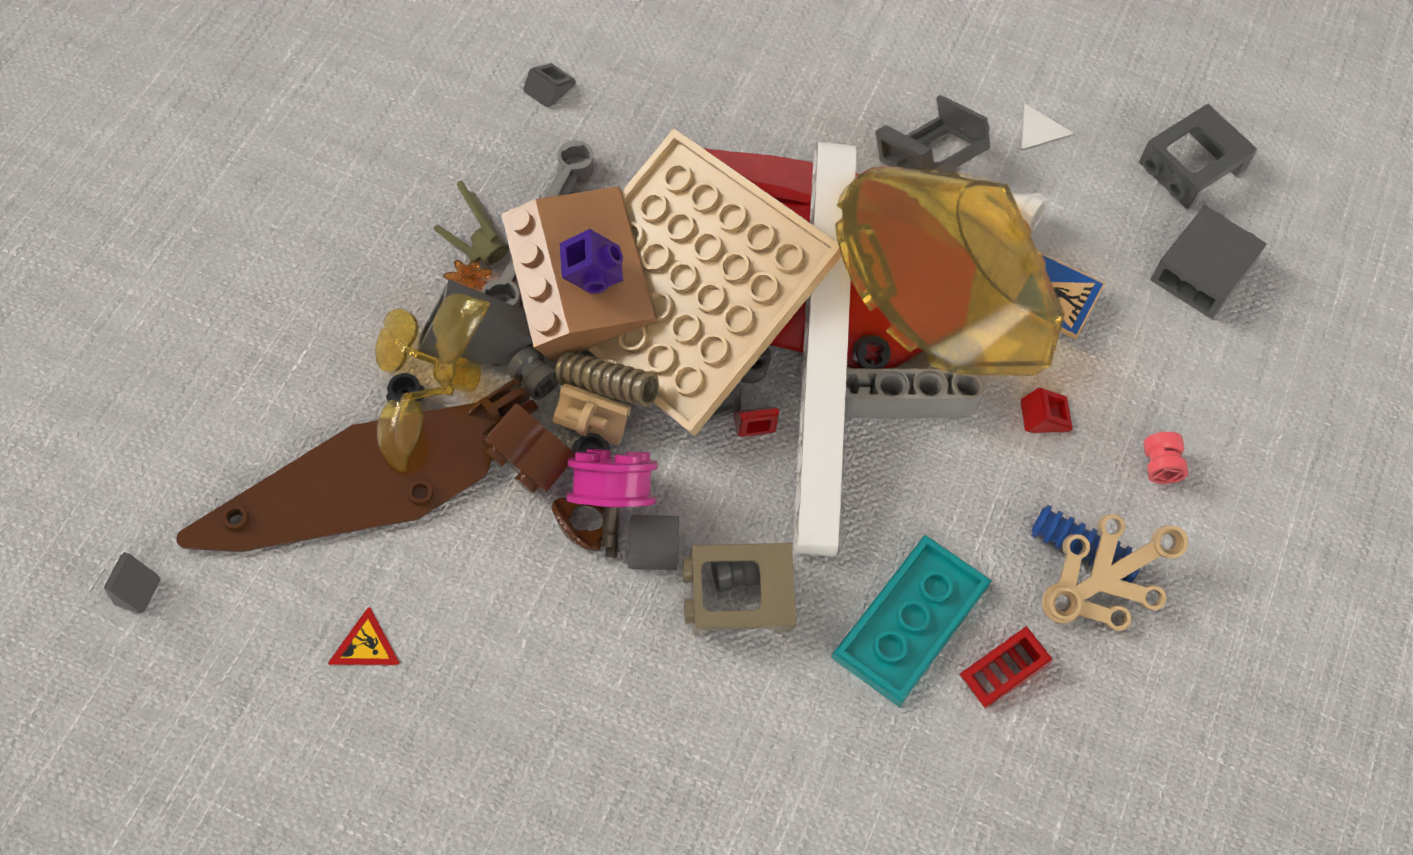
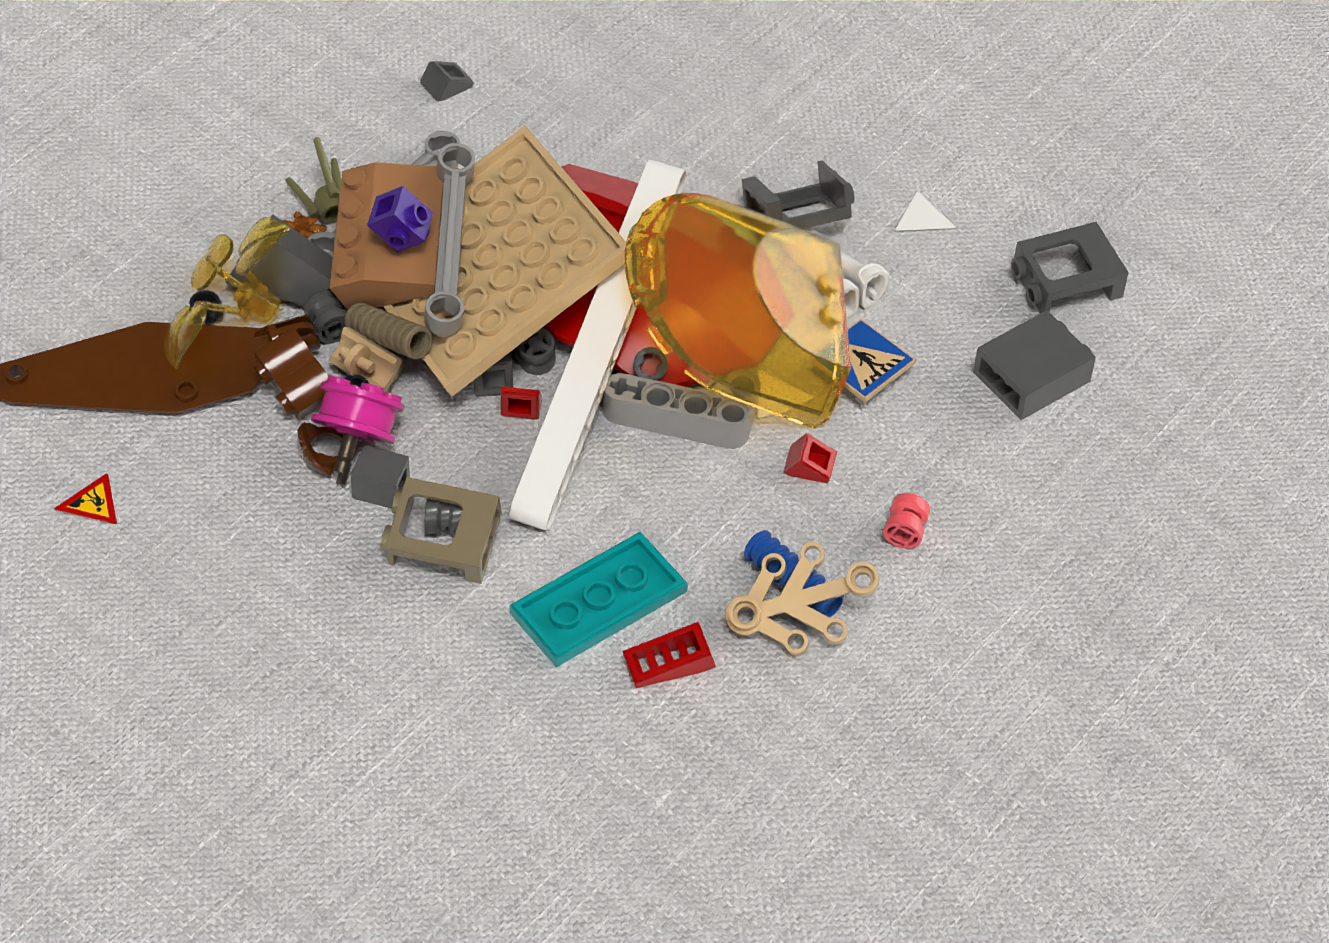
camera: 20 degrees right, 10 degrees down
(642, 269) = (449, 240): none -> light grey piece

